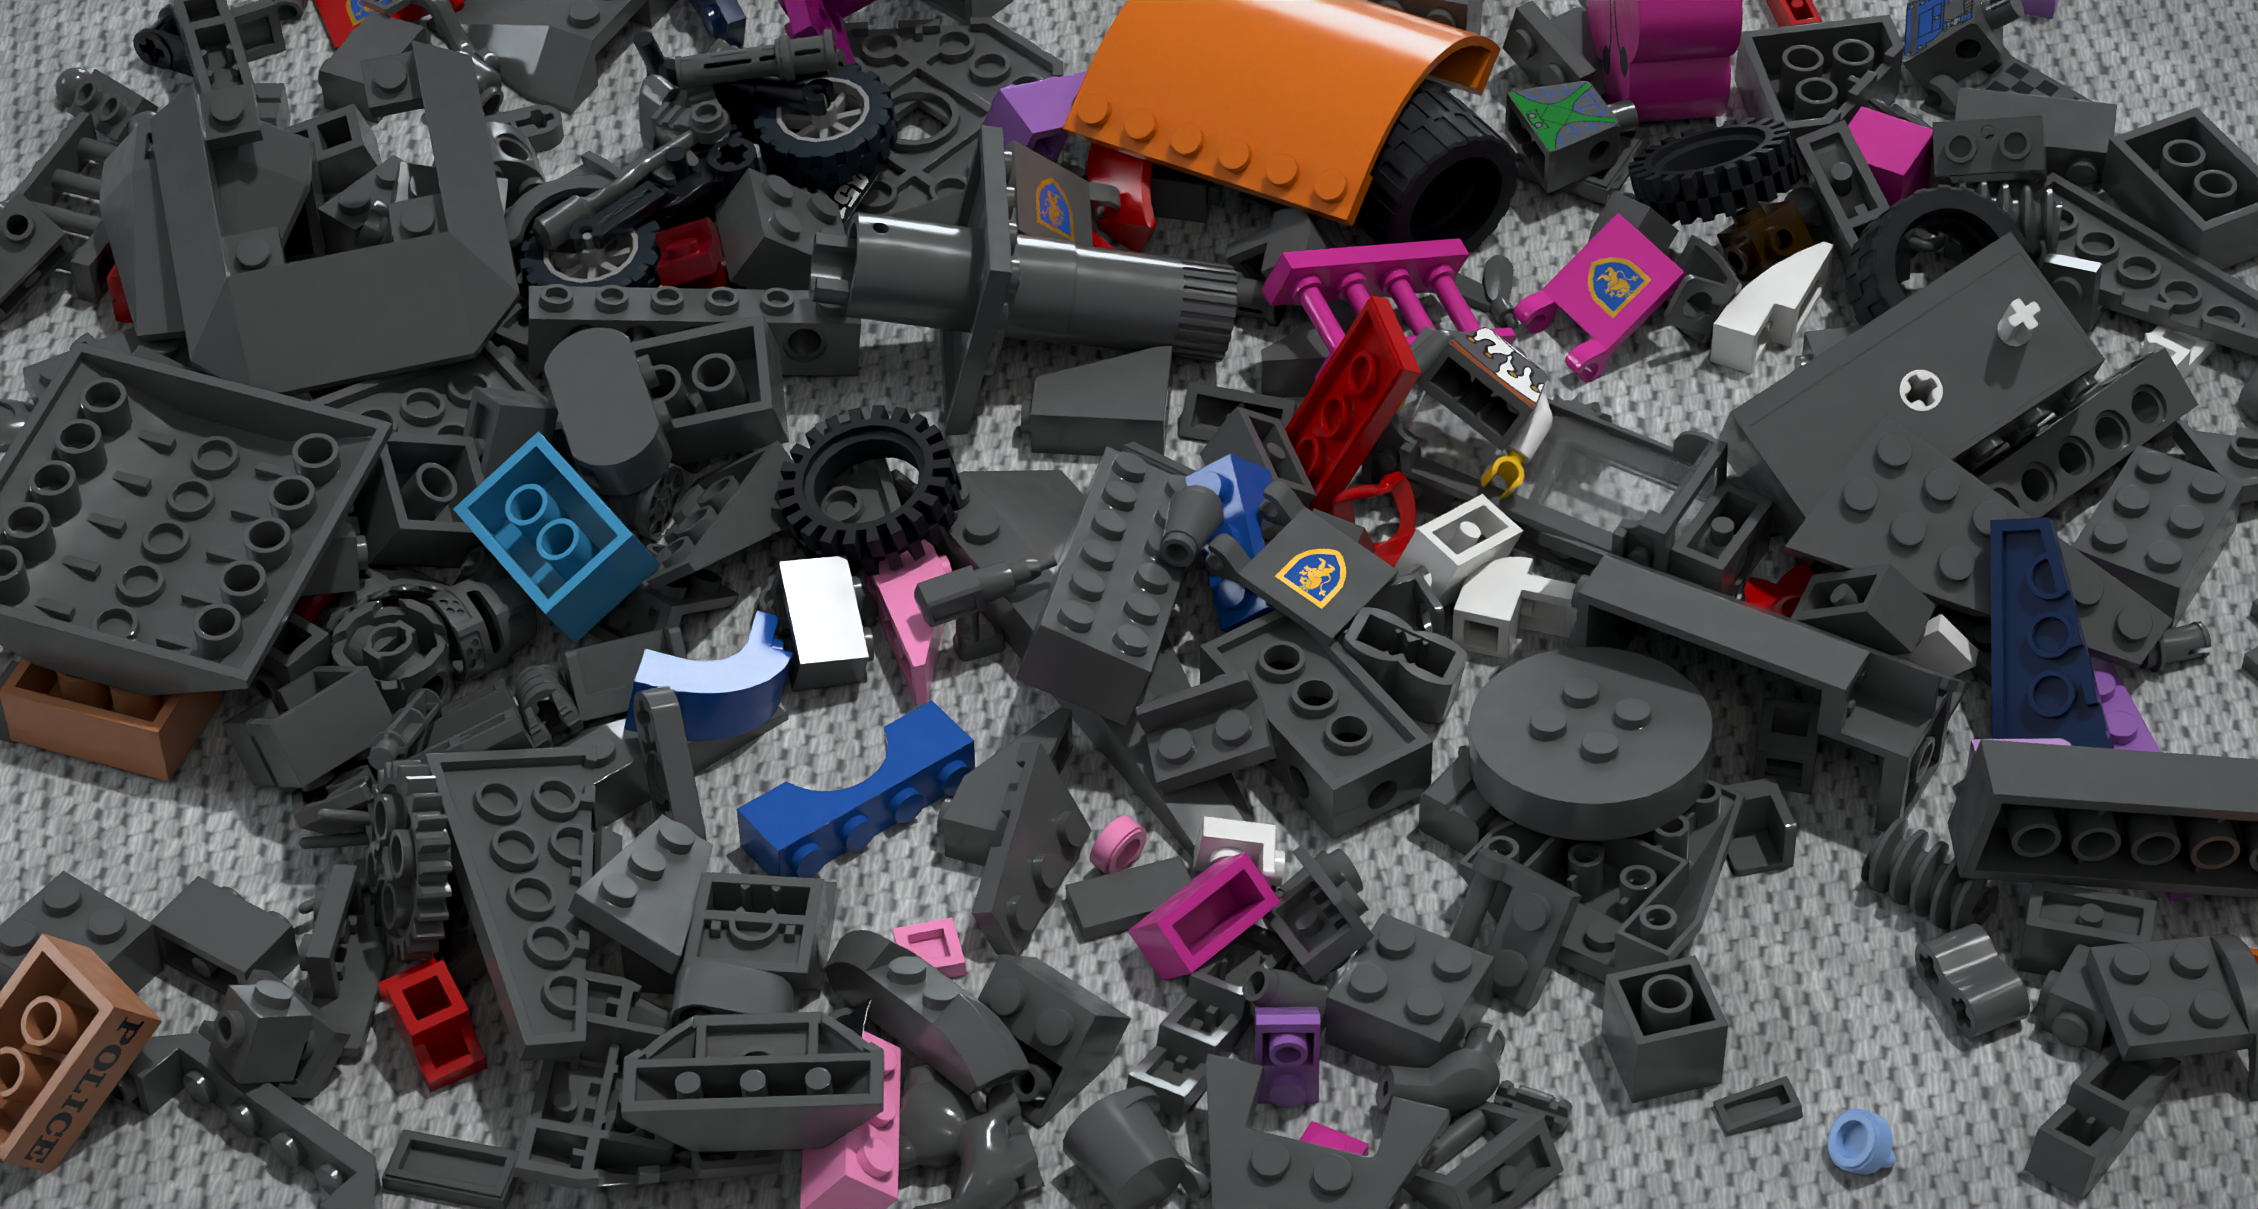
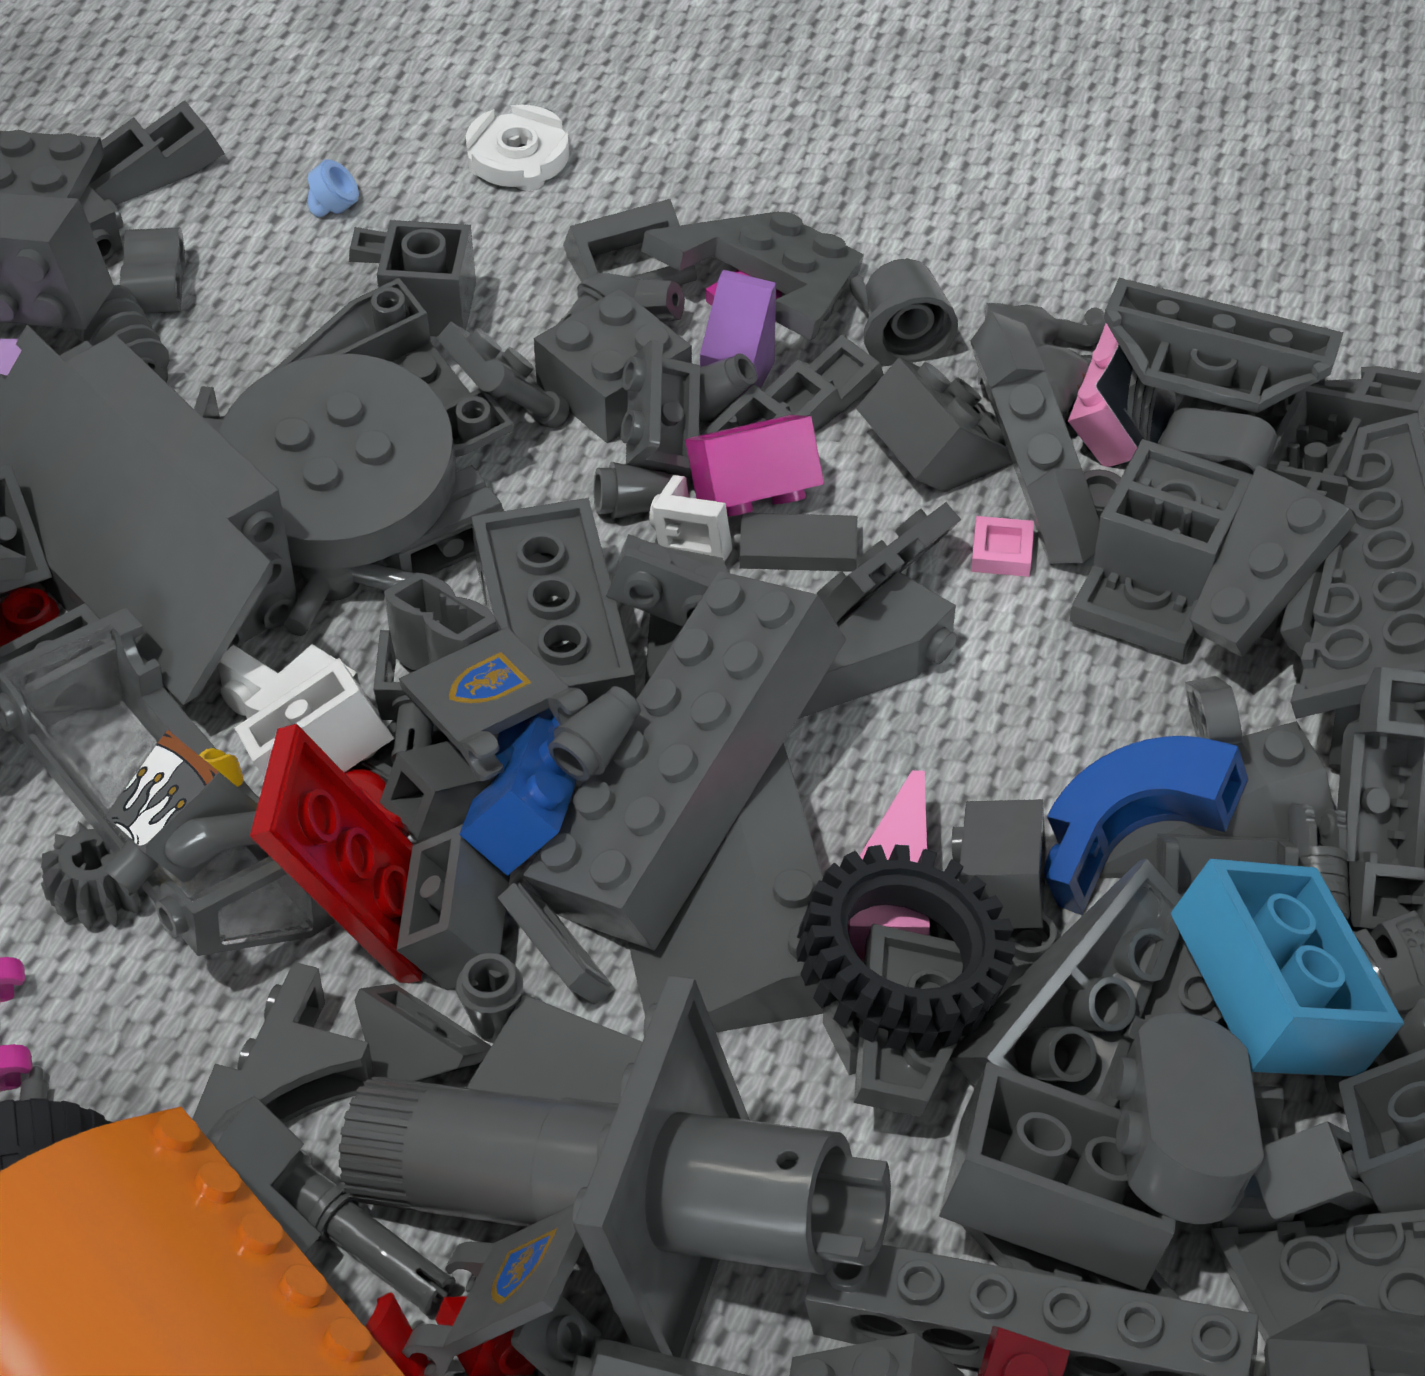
camera: 160 degrees left, 5 degrees up
(802, 829) = (1088, 670): blue arch -> none
(966, 593) = (843, 798): dark grey piece -> none
(1118, 845) = (795, 568): bright pink tile -> none
(1190, 422) = (489, 992): none -> dark grey cone
(1375, 270) = (229, 1063): dark pink fence -> none
(1535, 1102) = (554, 283): dark grey piece -> none

